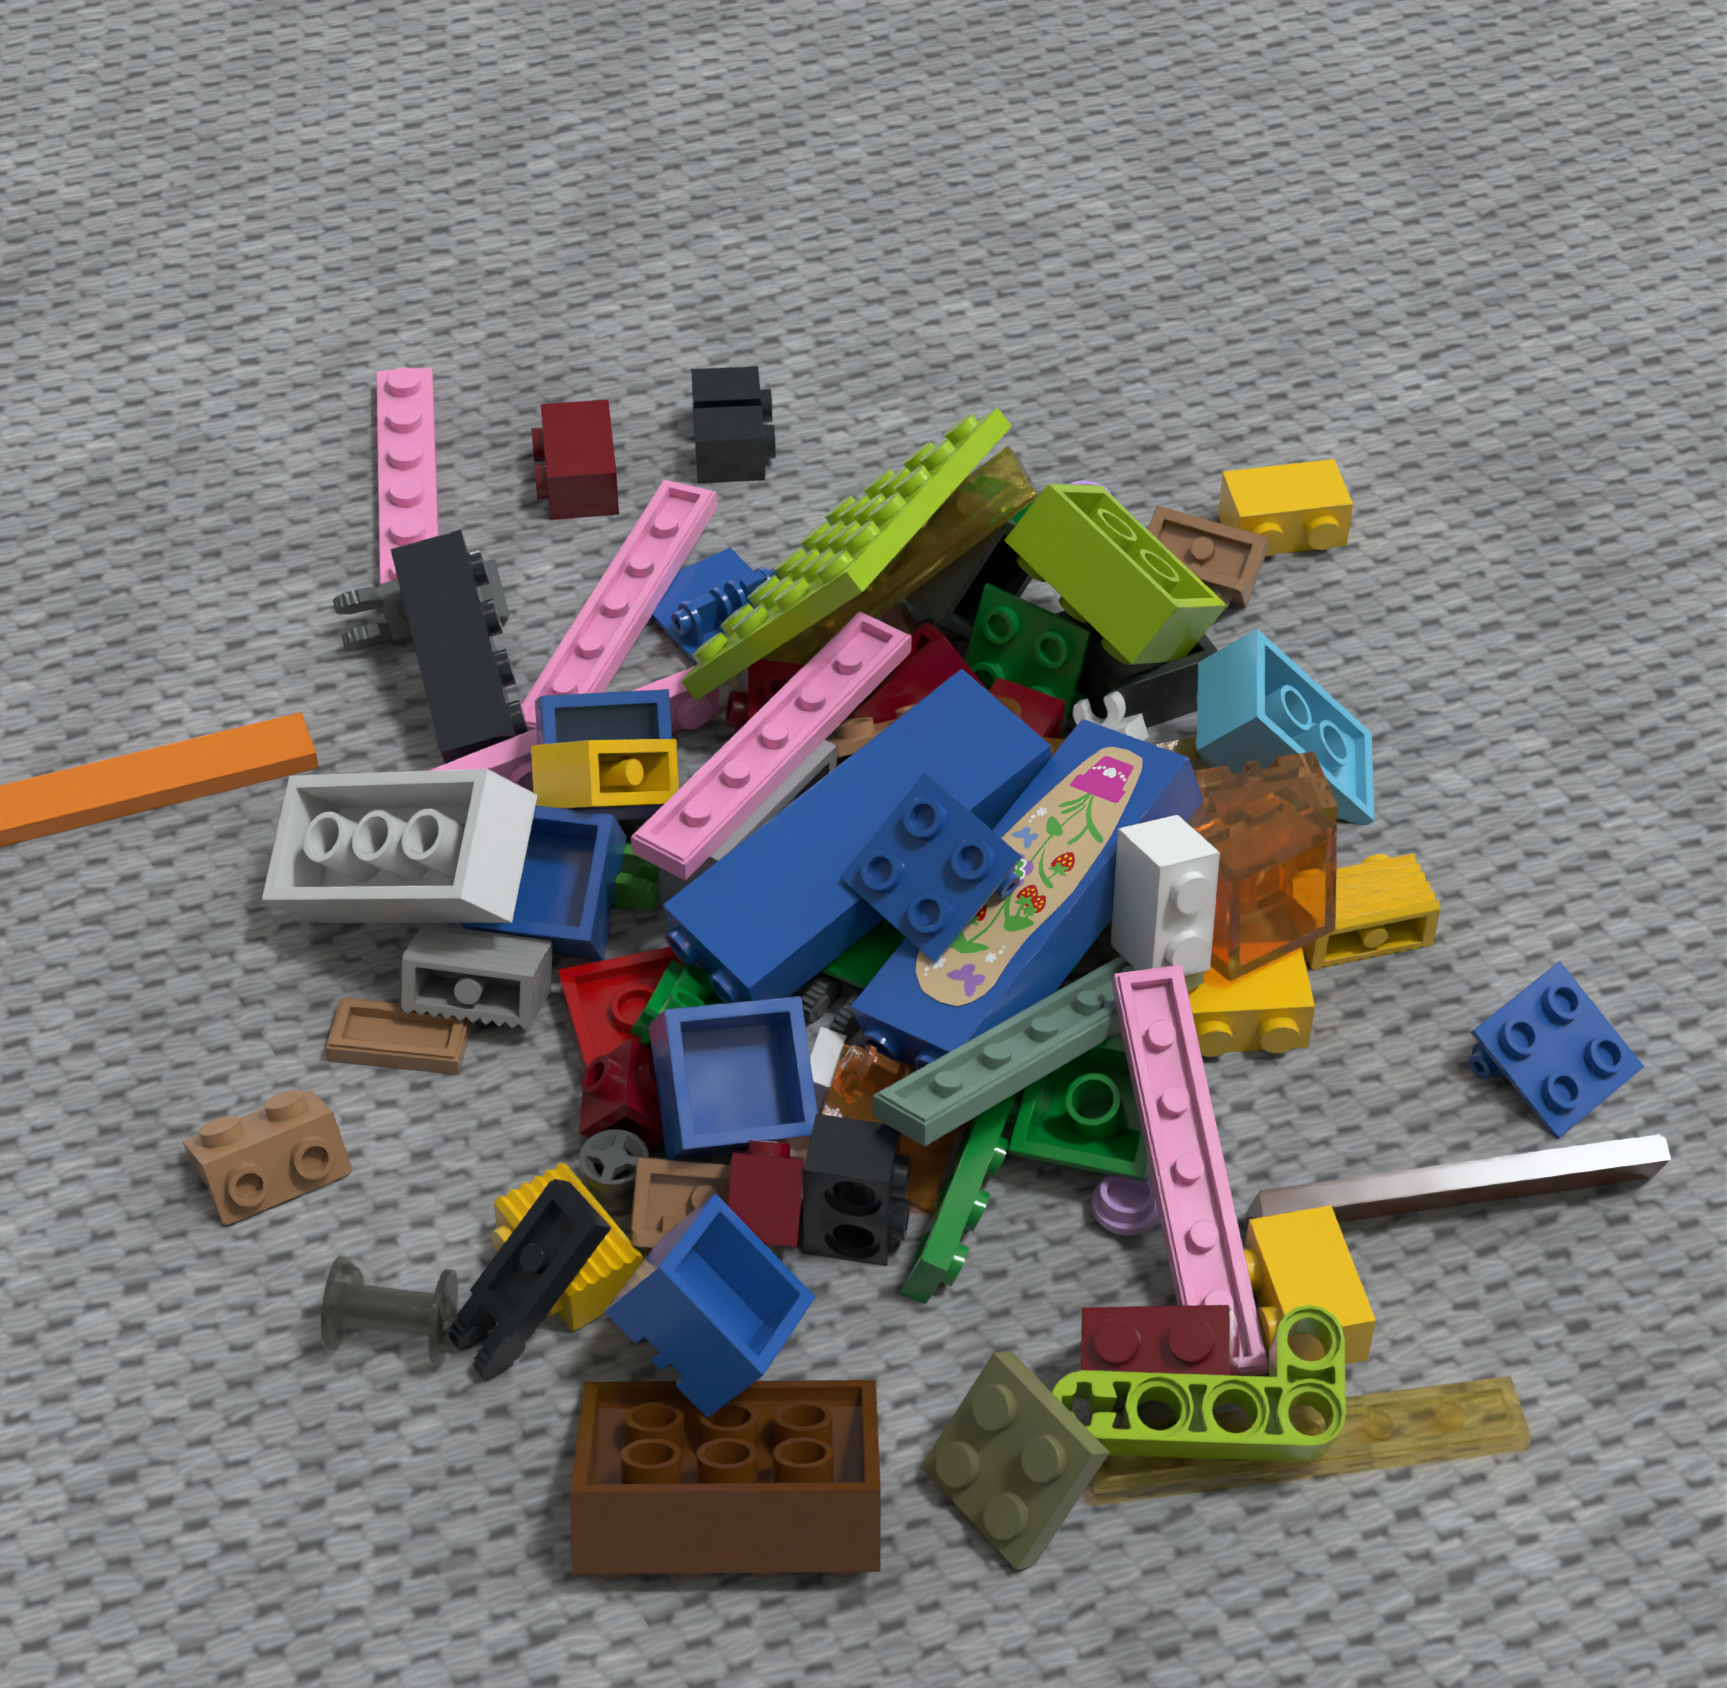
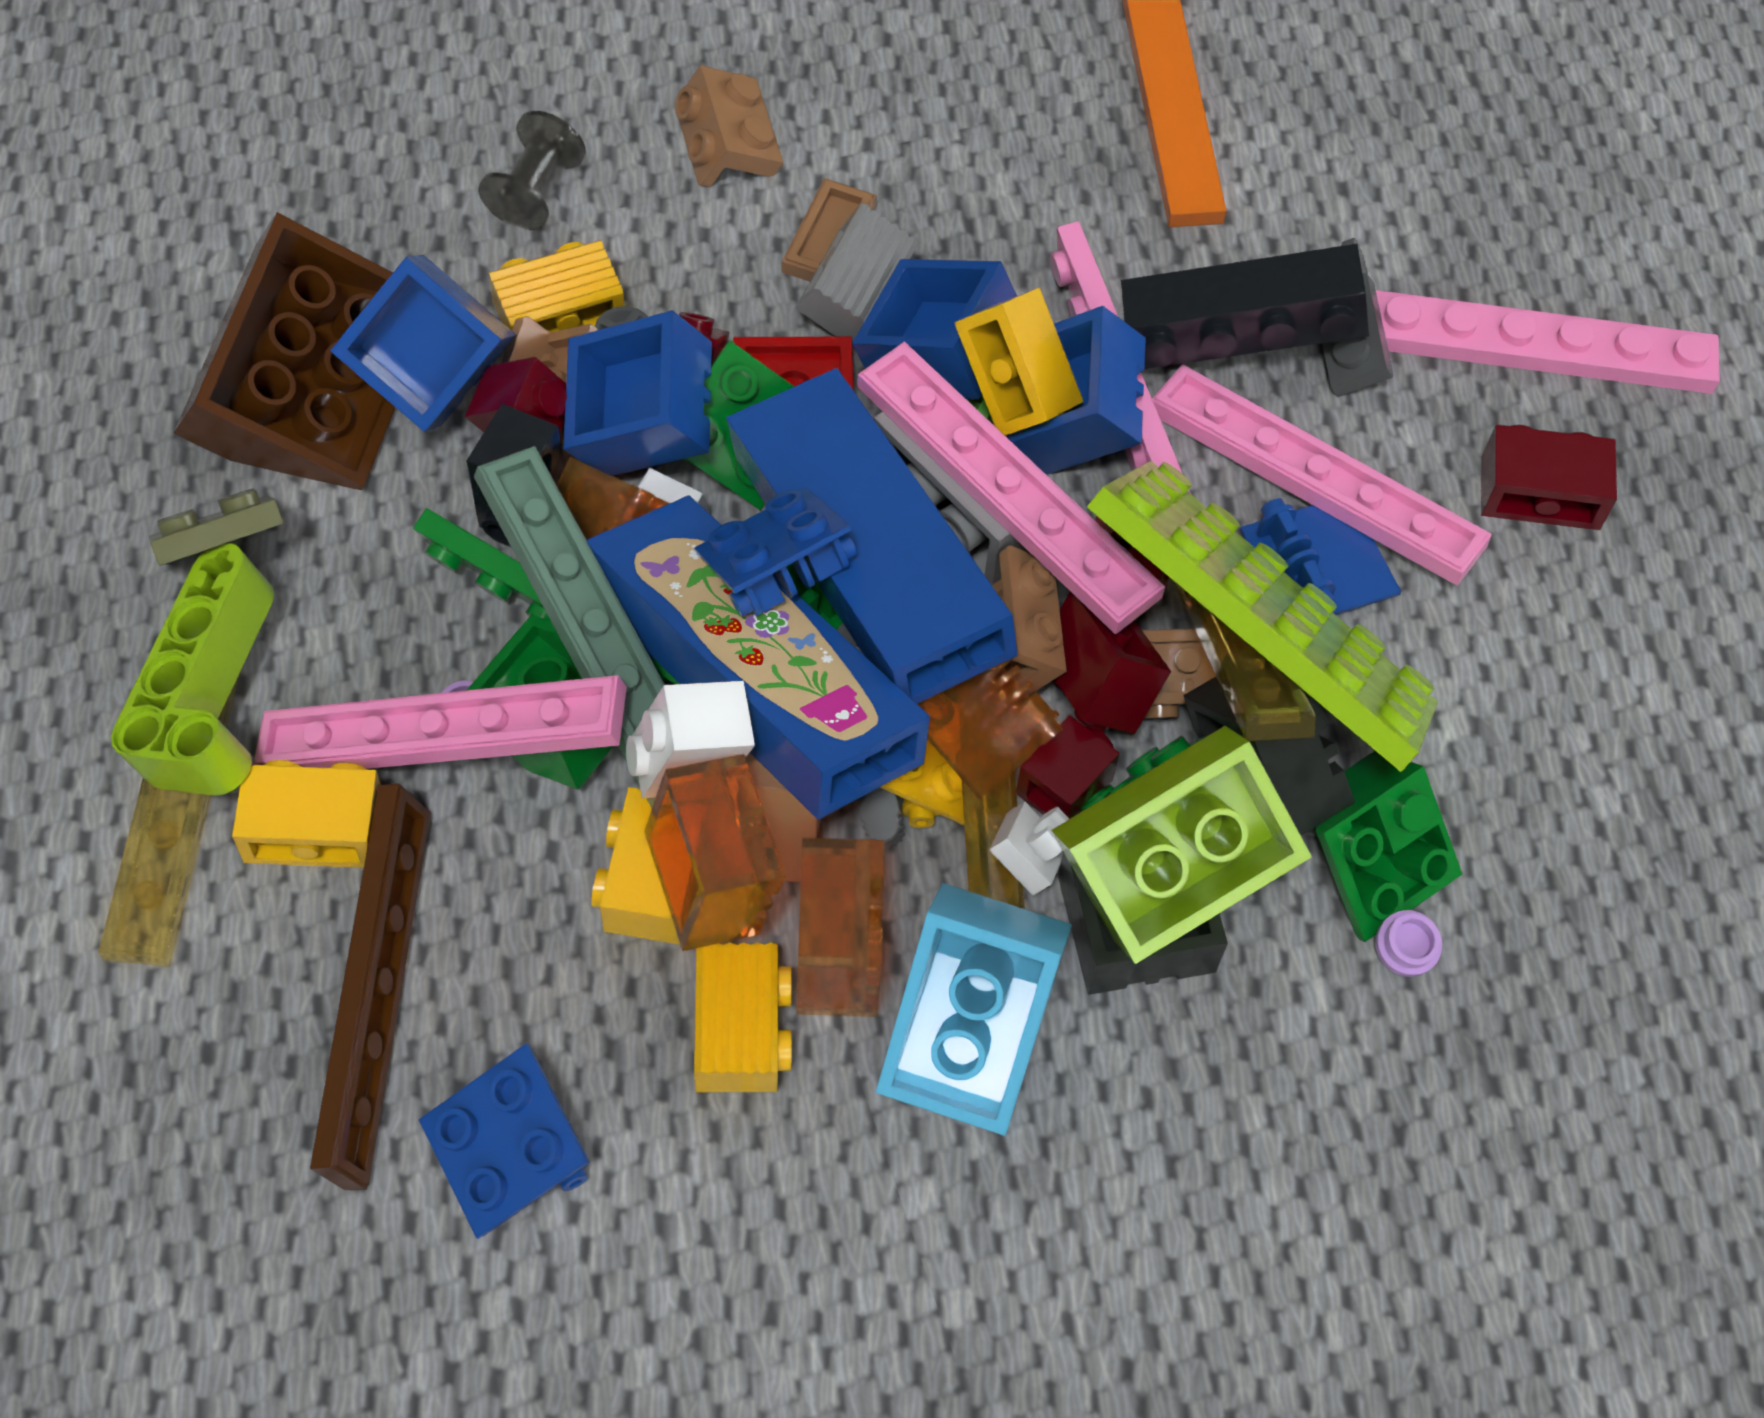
camera: 100 degrees right, 15 degrees up
(401, 847) = (965, 203): white brick -> none
(528, 1276) = (510, 243): black hinge -> none
(730, 426) = (1566, 626): black piece -> none
(1161, 1339) = (271, 663): dark red brick -> none
(1216, 553) = (1290, 1024): medium nougat bracket -> none
(1290, 504) = (1362, 1148): yellow brick -> none

